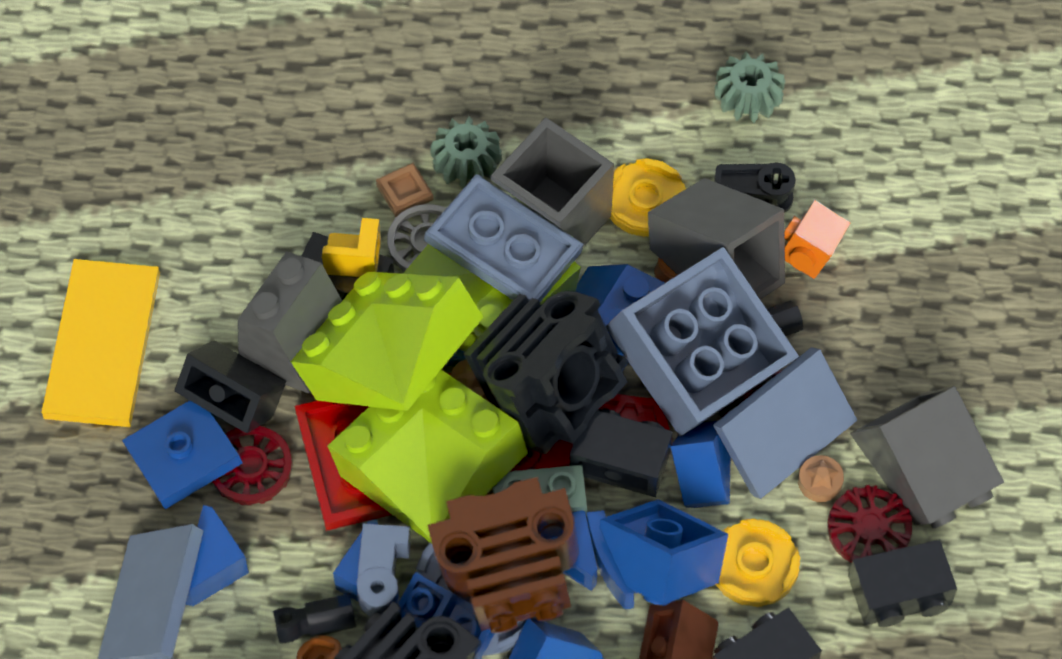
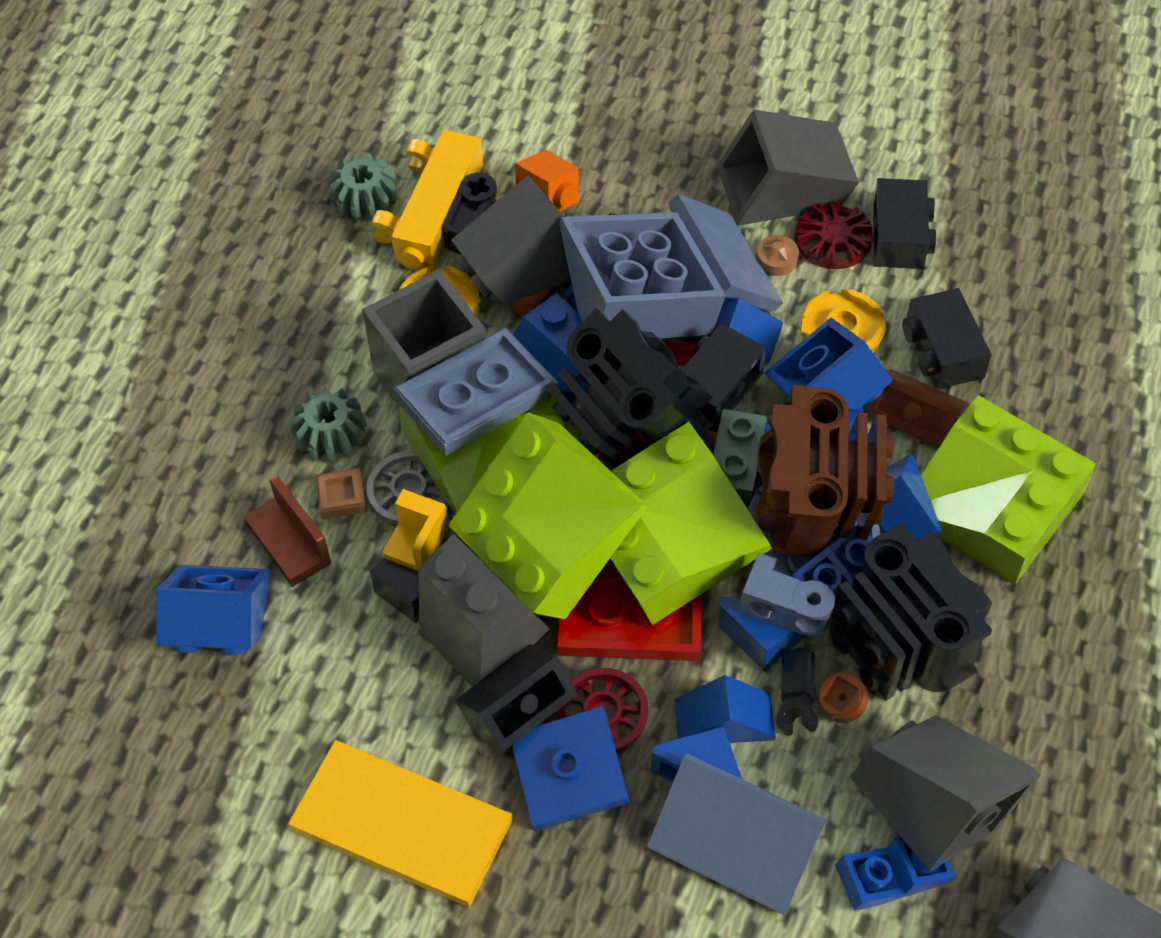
camera: 70 degrees left, 5 degrees down
(253, 131) = (212, 608): none -> blue slope
(275, 567) = (728, 704): none -> blue slope
(344, 163) = (289, 535): none -> copper panel
(805, 148) = (419, 232): none -> yellow brick

